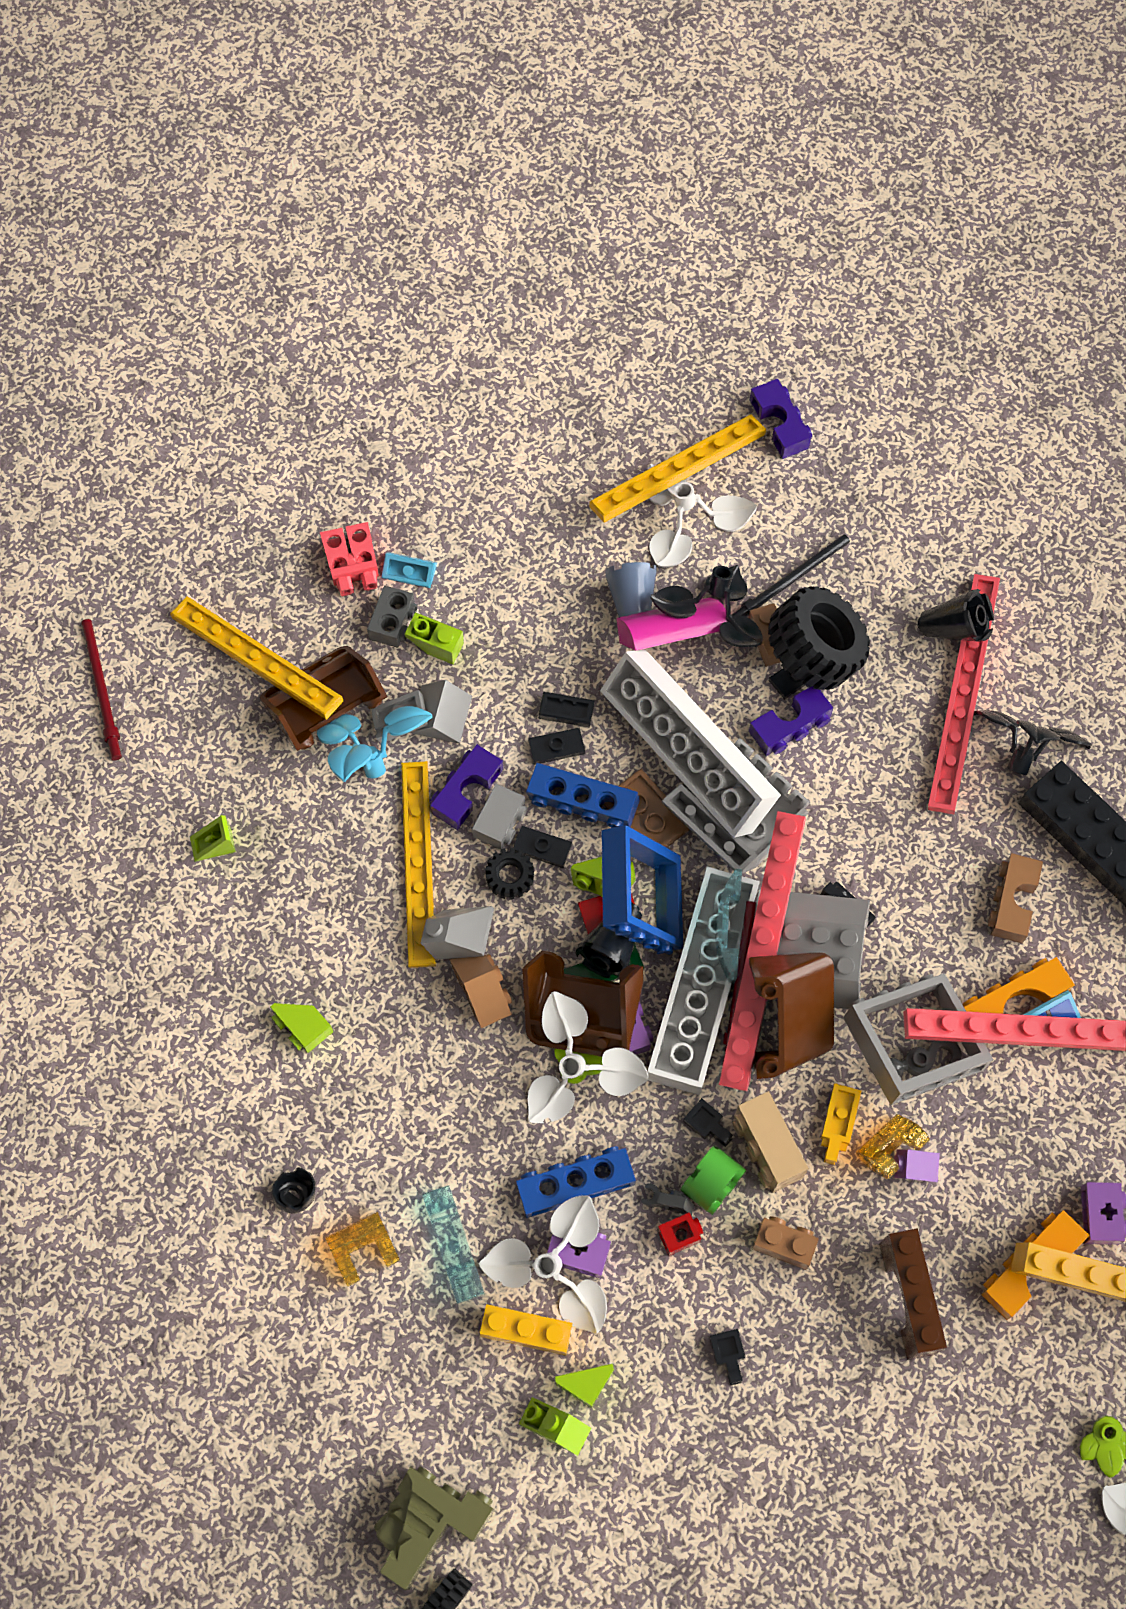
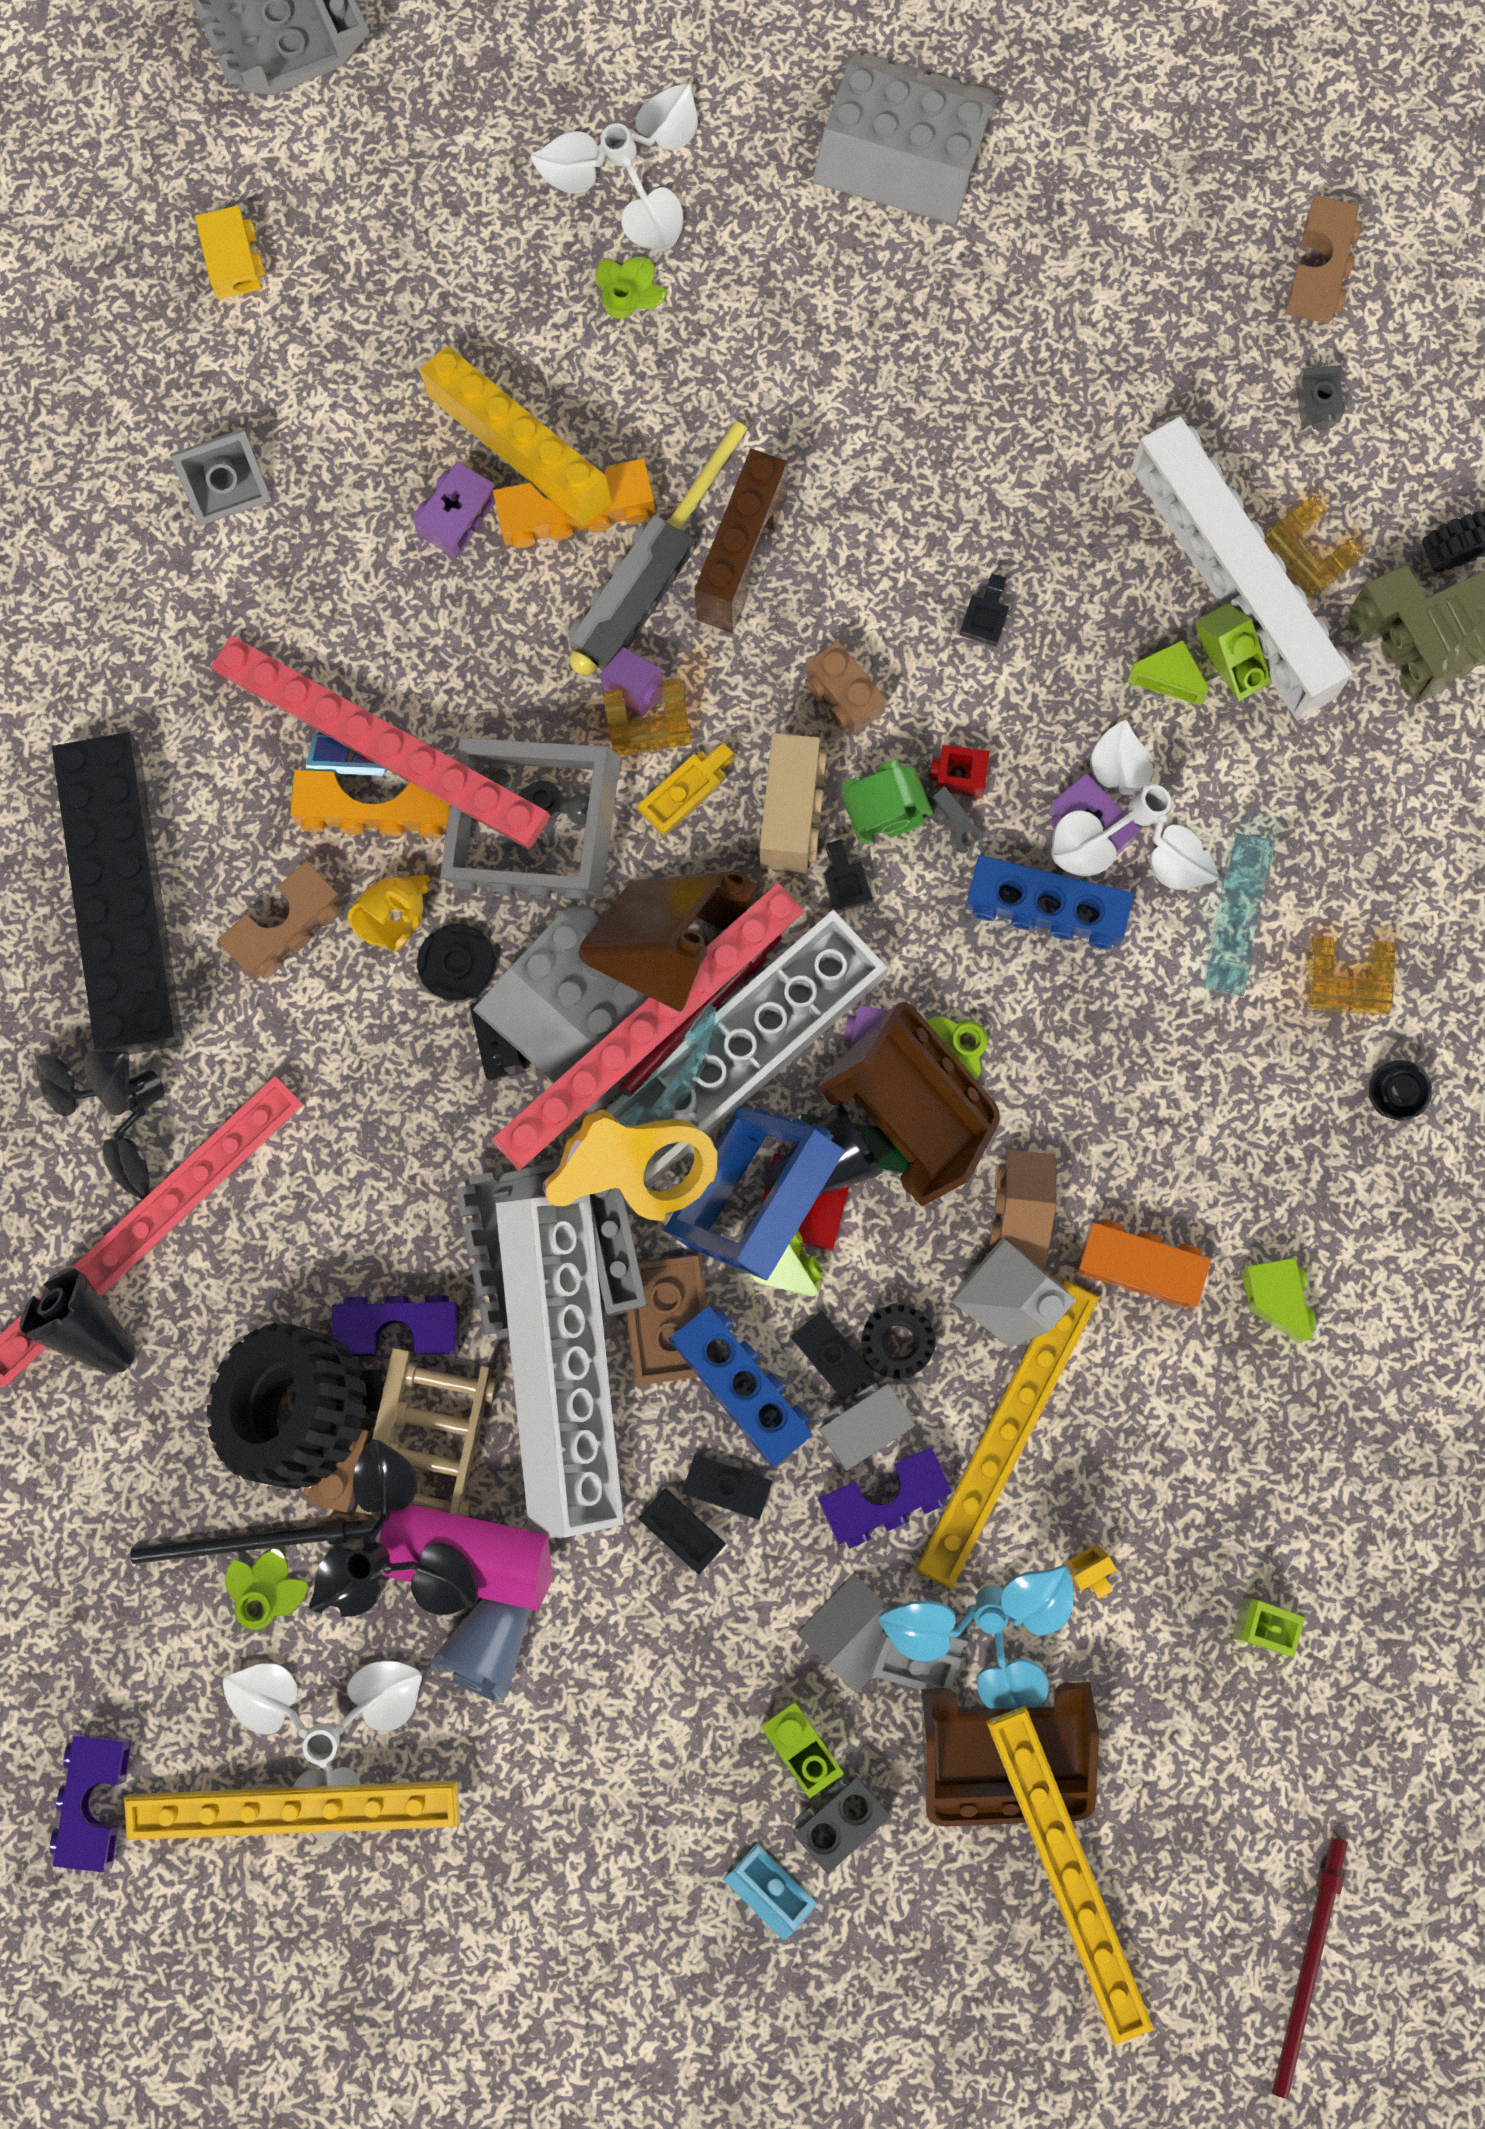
camera: 145 degrees left, 10 degrees up
(329, 814) = (1091, 1570): none -> yellow tile
(352, 566) = (851, 1944): coral hips -> none
(393, 996) = (1143, 1264): none -> orange brick
(526, 1329) = (1207, 768): yellow brick -> none
(547, 1523) = (1301, 560): none -> clear yellow connector
(584, 1481) = (1240, 565): none -> white brick
(620, 1072) = (922, 986): white plant -> none
(734, 855) = (616, 1155): none -> yellow animal
(760, 679) = (395, 1413): none -> tan fence
(767, 563) = (267, 1583): none -> lime plate
(904, 945) = (456, 975): none -> black tile
(959, 942) = (373, 908): none -> yellow helmet
(959, 1244) = (642, 575): none -> piece

